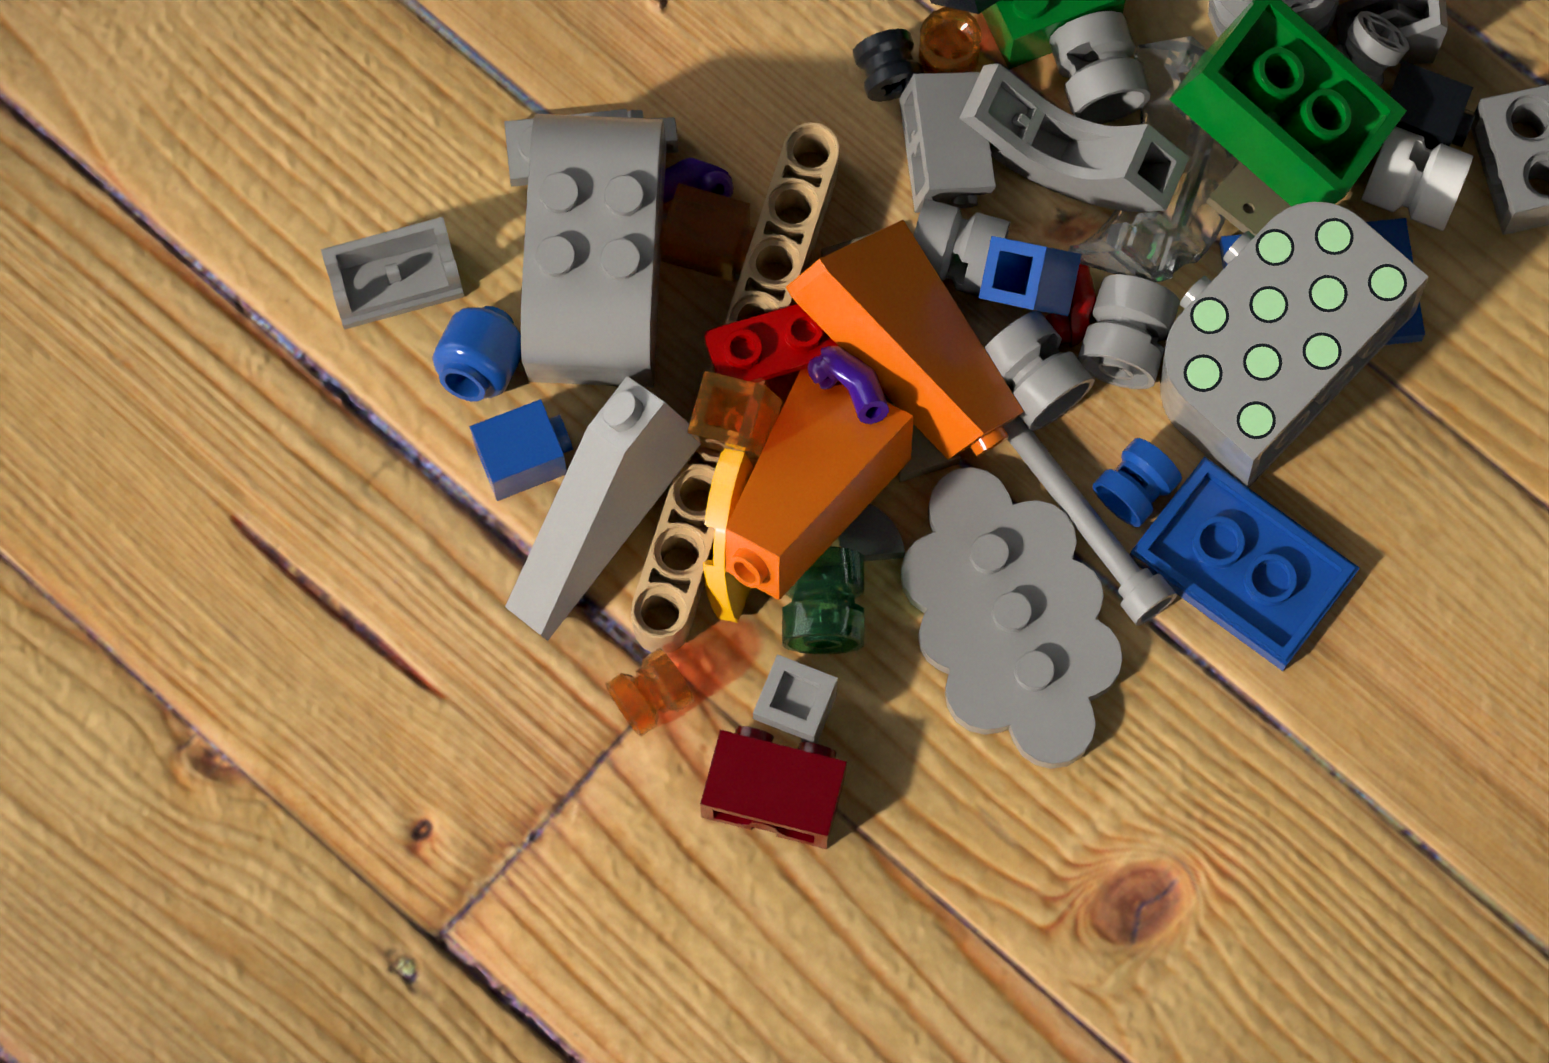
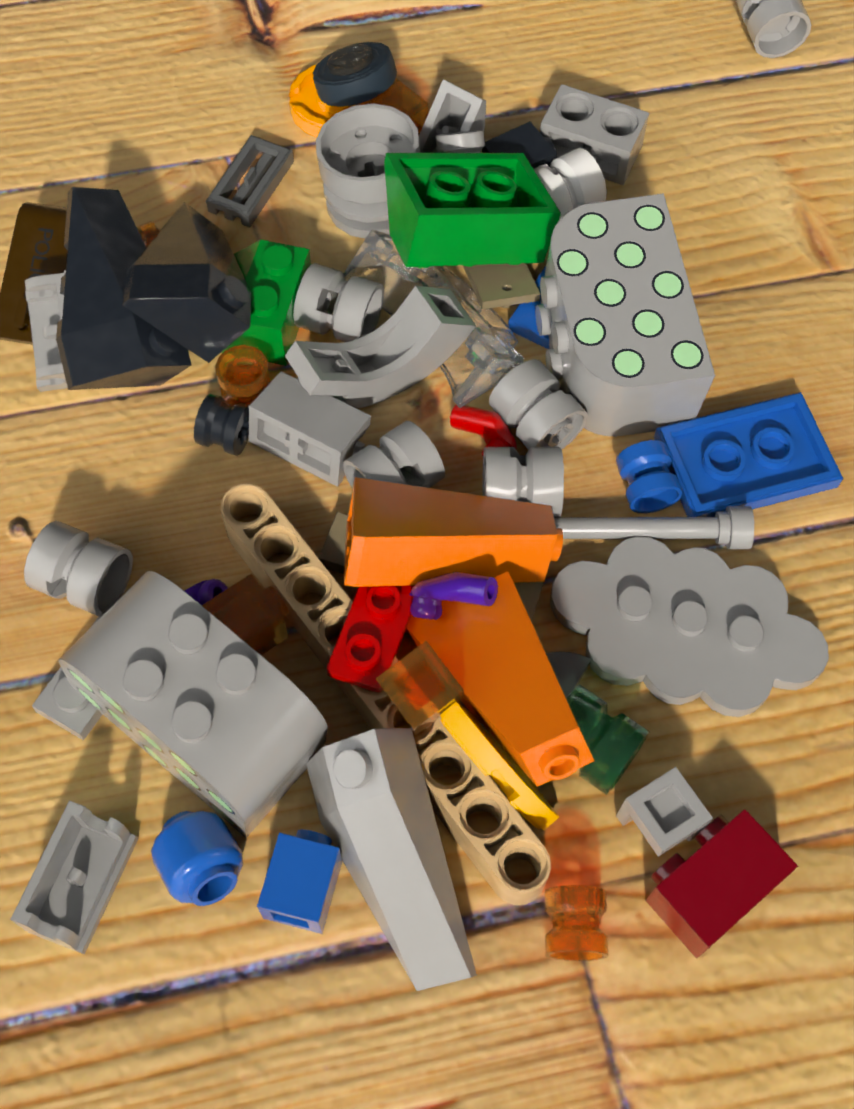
camera: 55 degrees left, 10 degrees down
(649, 63) = (71, 566): none -> light grey wheel
(1029, 276) = (459, 430): blue brick -> none

